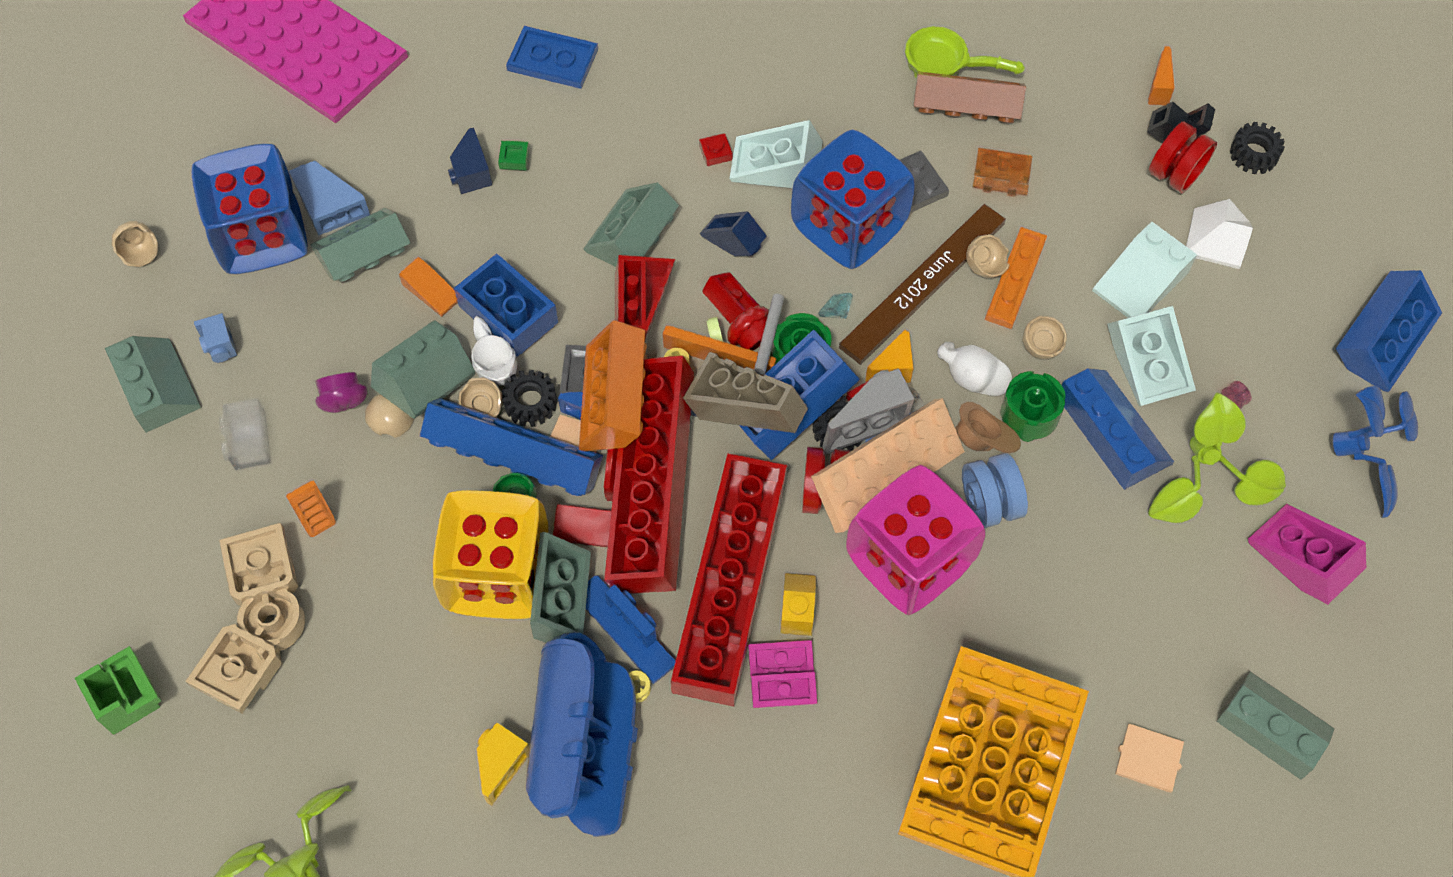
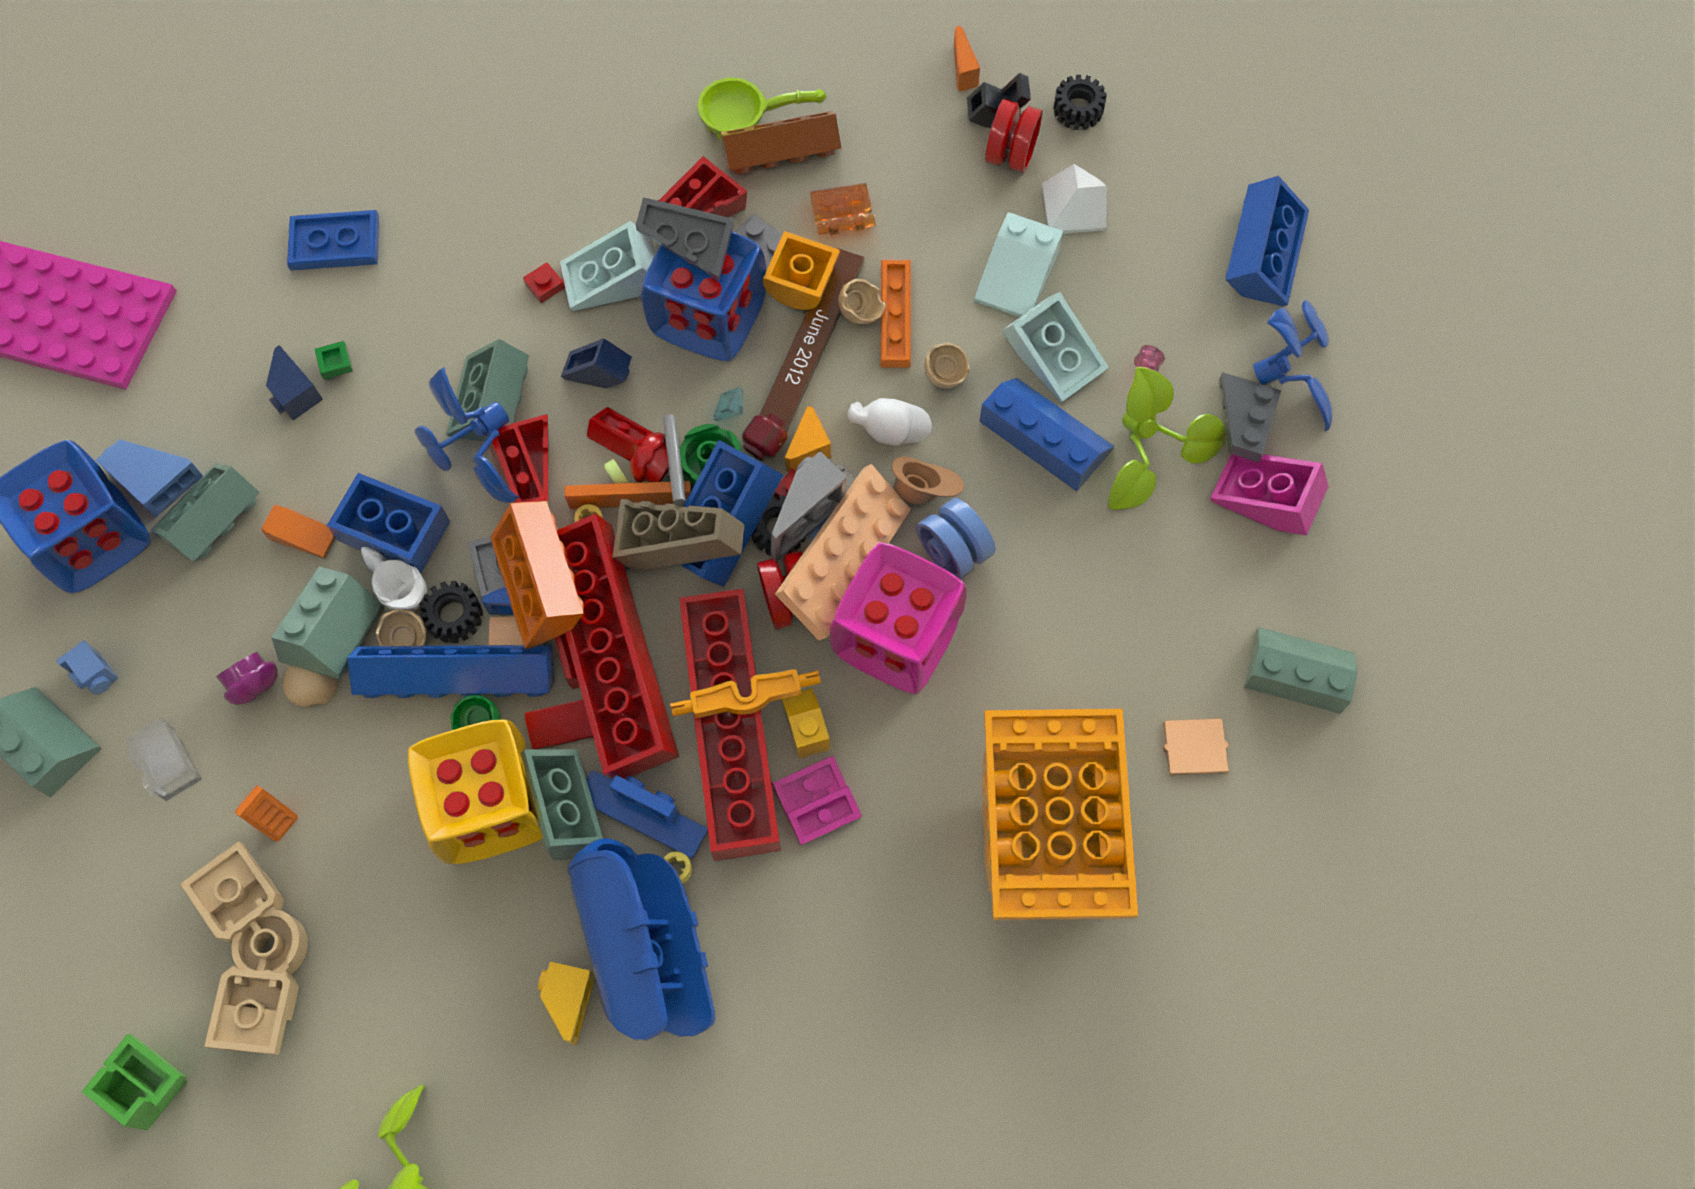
camera: 20 degrees left, 5 degrees up
(618, 247) = (485, 422): none -> blue plant
(771, 558) = (727, 697): none -> light orange piece
(853, 143) = (688, 233): none -> dark grey wing
(856, 342) = (764, 436): none -> dark red head
(880, 117) = (707, 190): none -> red wedge
(942, 211) = (799, 271): none -> light orange brick
(1033, 405) = (961, 438): green brick -> none
(1312, 476) = (1248, 415): none -> dark grey wing

